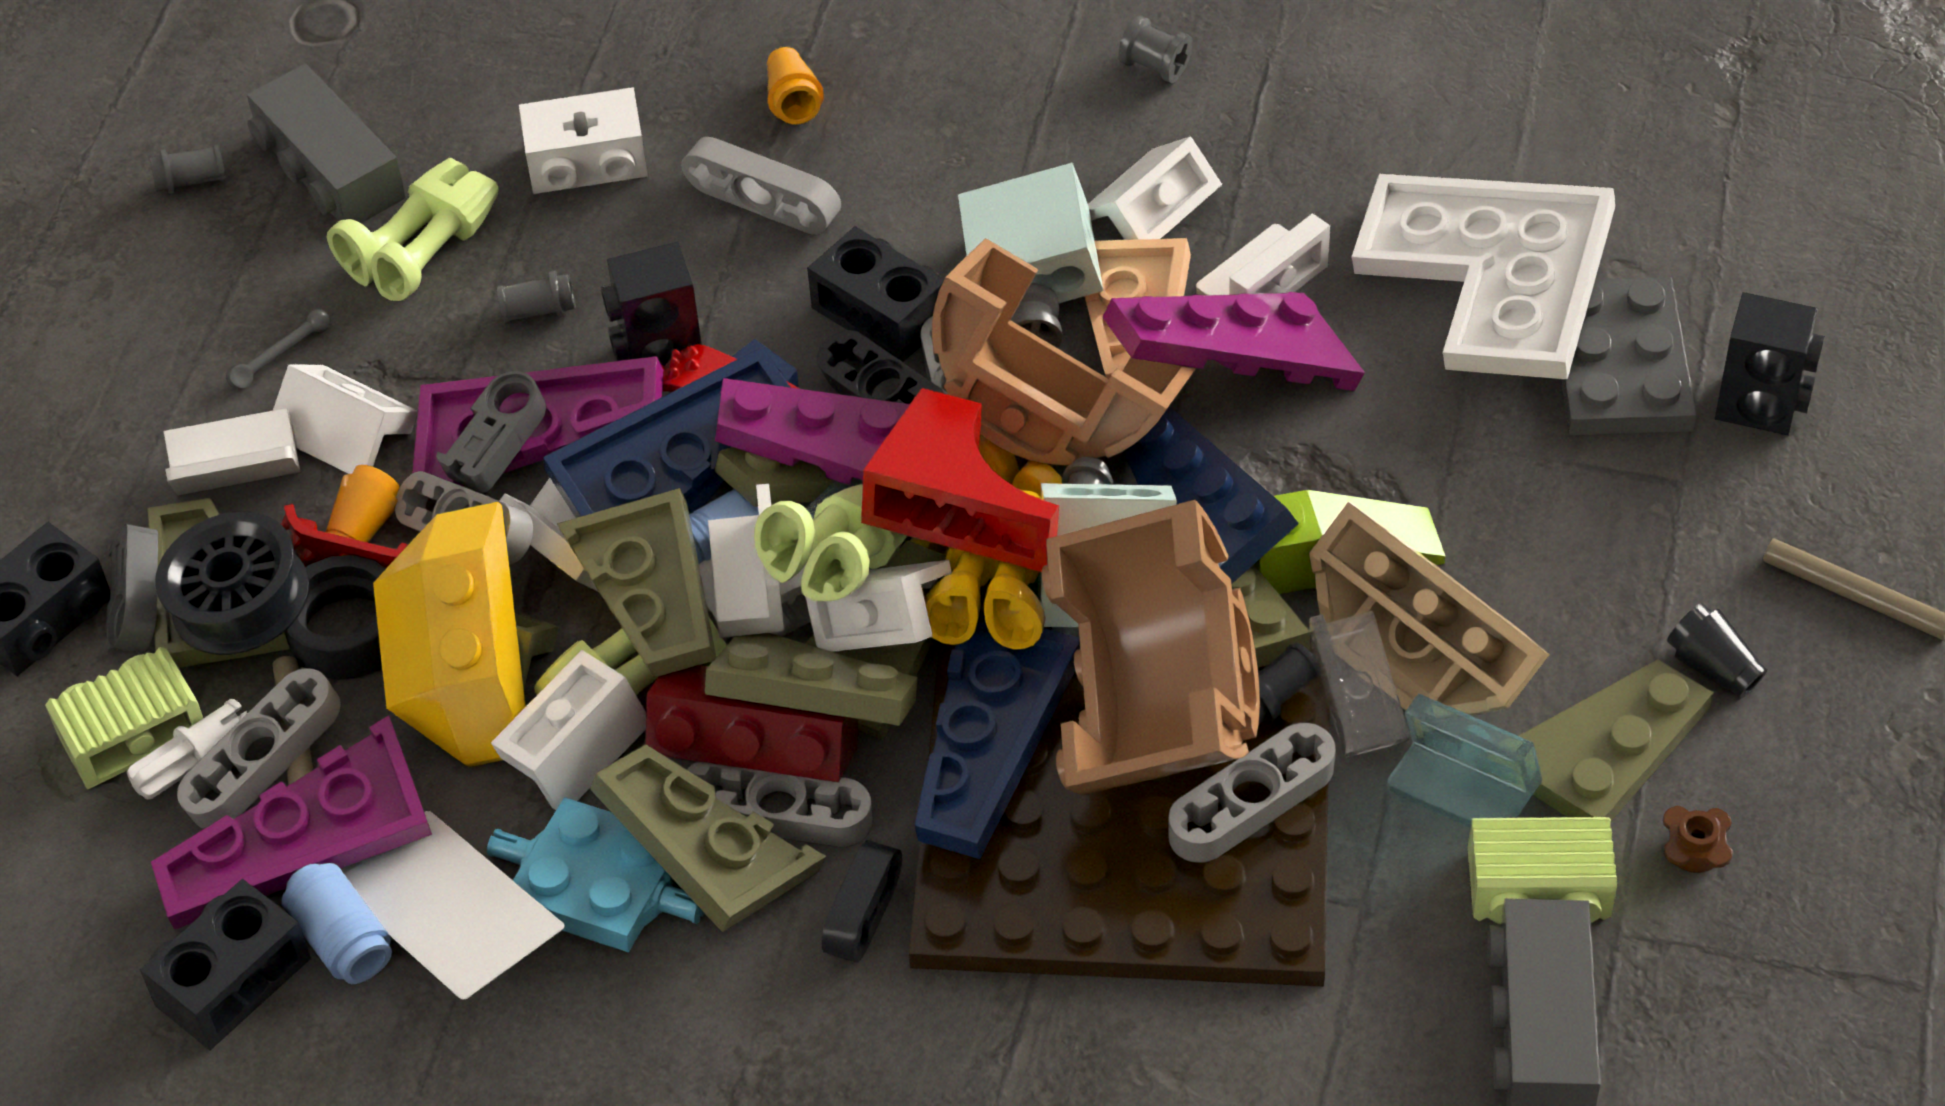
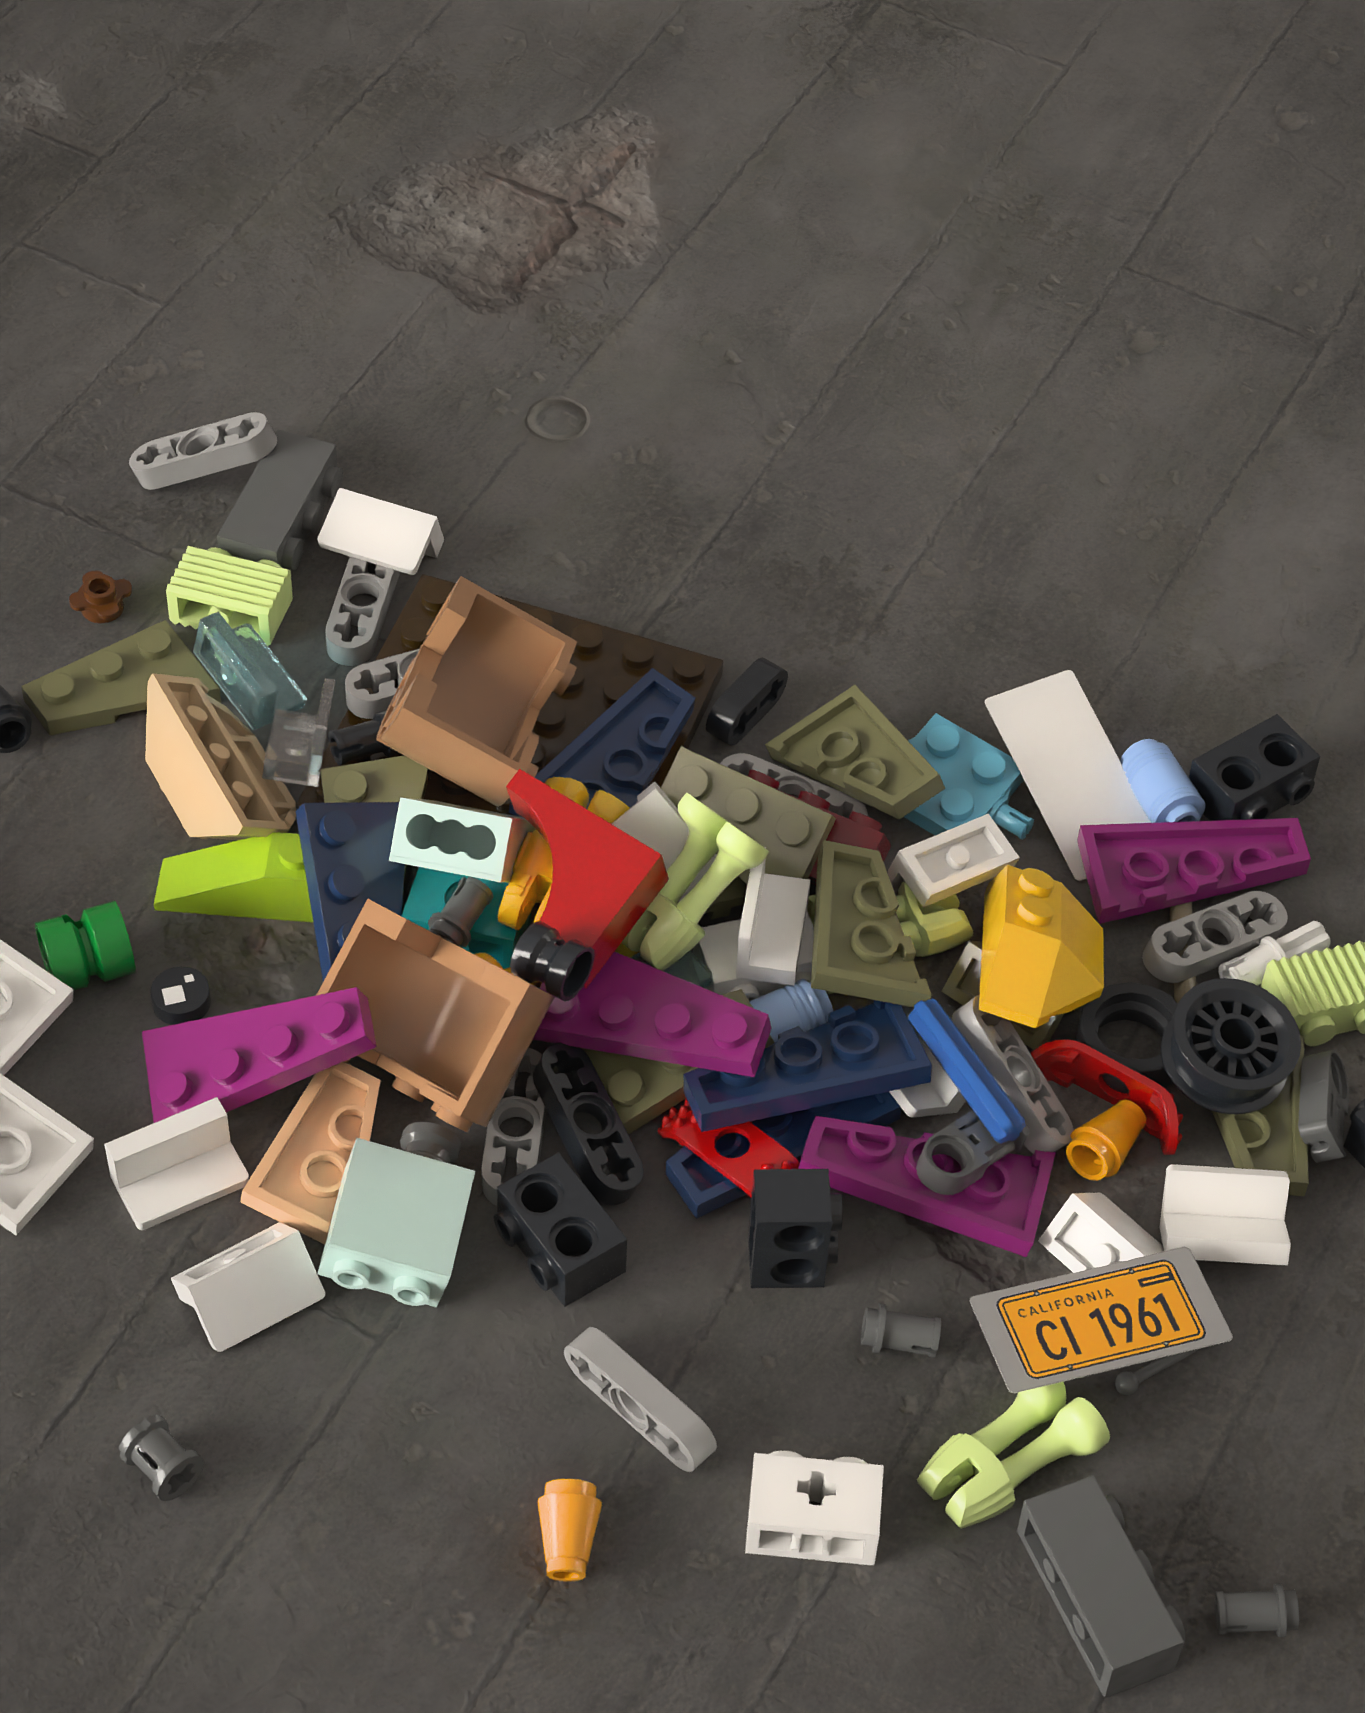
camera: 170 degrees left, 0 degrees up
(342, 303) = (1100, 1319): none -> sticker
(506, 468) = (967, 1071): none -> blue axle
(943, 360) = (552, 961): none -> black wheel
(1348, 423) = (180, 995): none -> black tile
(1373, 952) = (367, 618): none -> light grey beam
(1400, 1004) = (380, 532): none -> white panel
(1461, 414) = (86, 947): none -> green wheel
(1663, 1062) = (203, 450): none -> light grey beam

